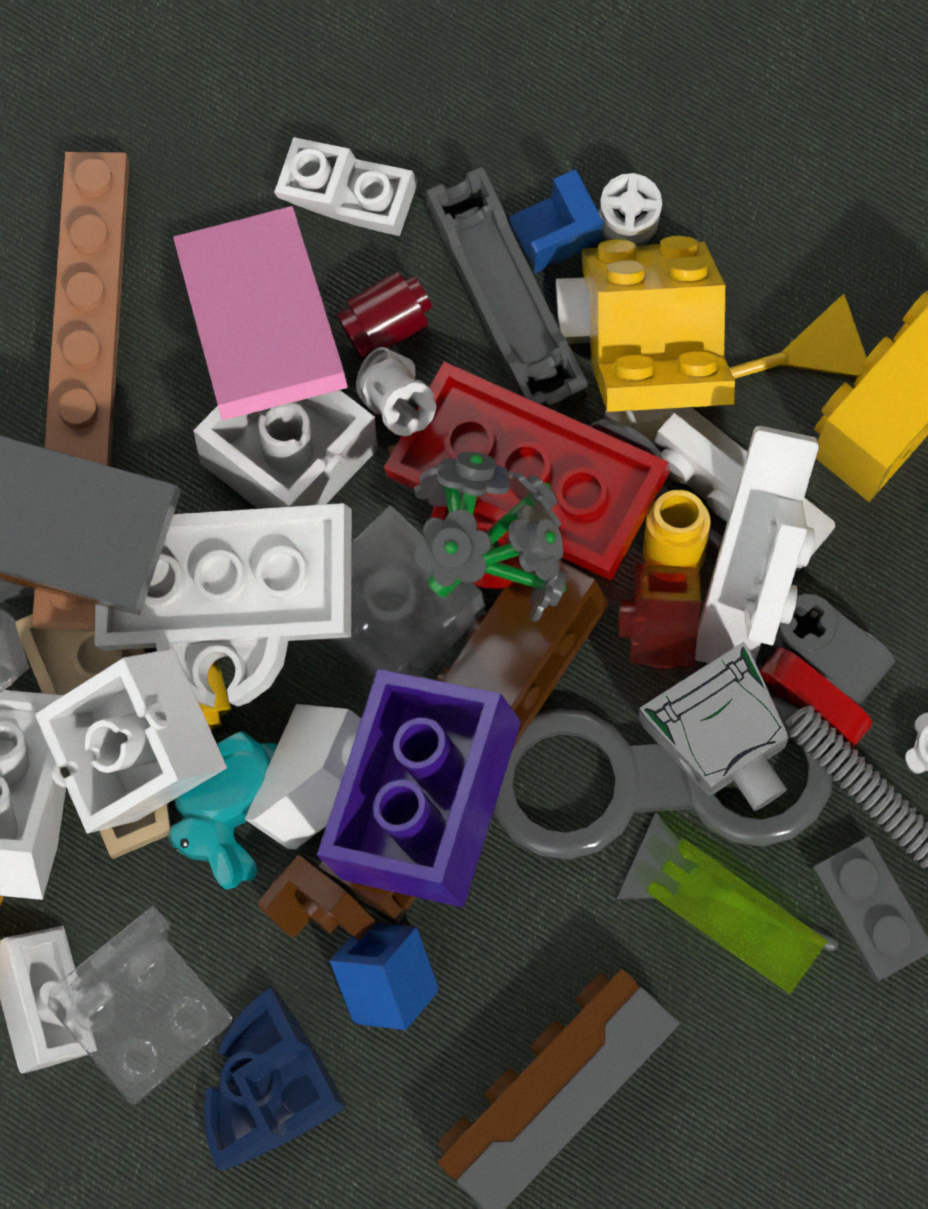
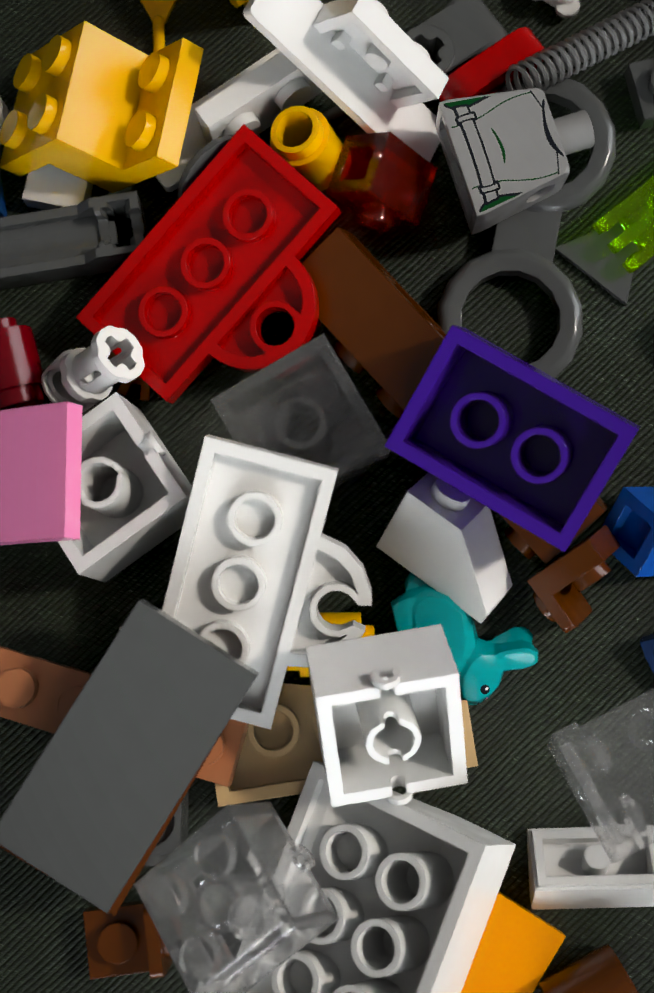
camera: 70 degrees left, 5 degrees up
(463, 554) = (290, 324): dark grey plant -> none

